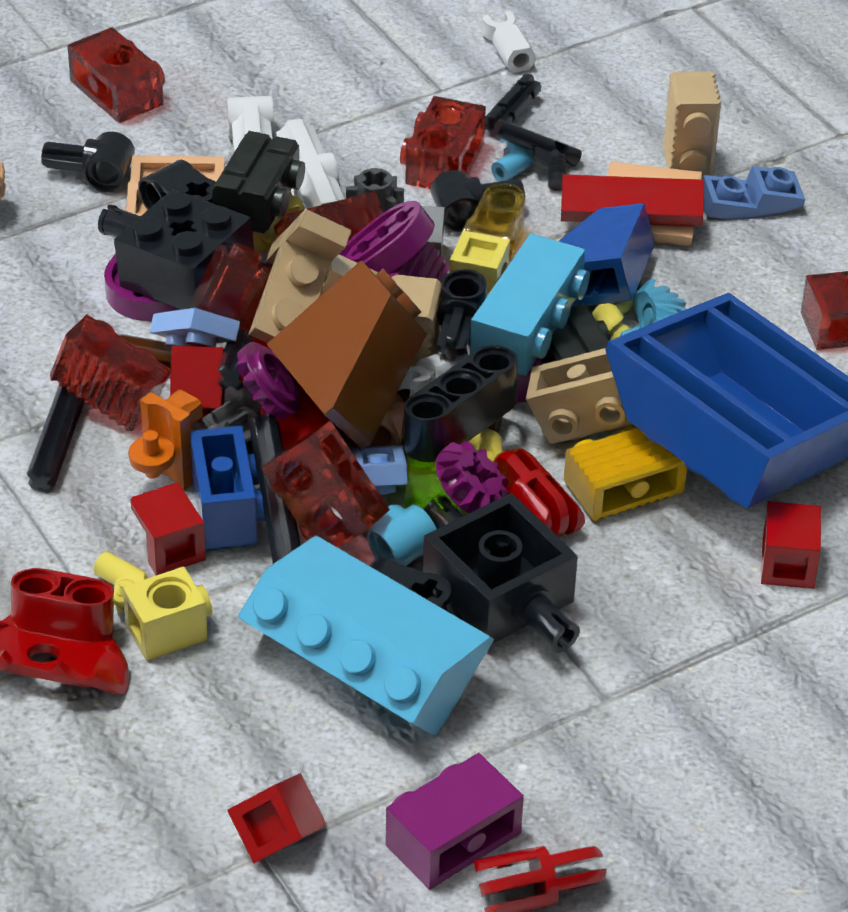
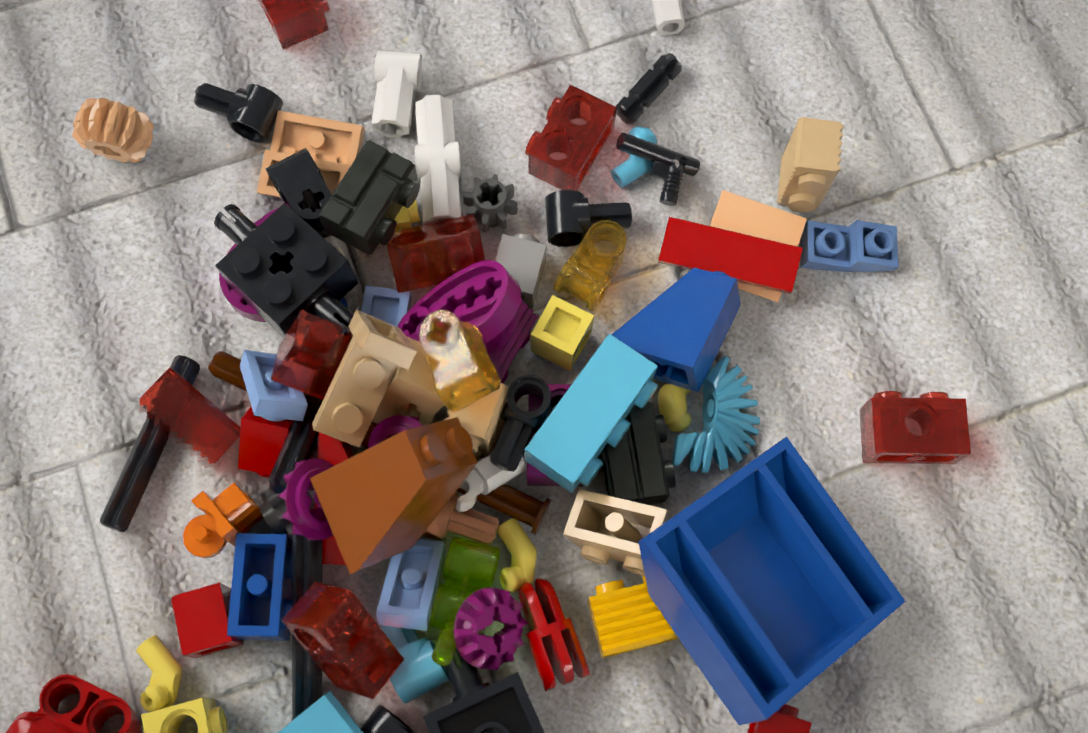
camera: 10 degrees right, 30 degrees up
(390, 245) = (457, 360): none -> clear yellow piece
(460, 402) = (506, 514): black beam -> none

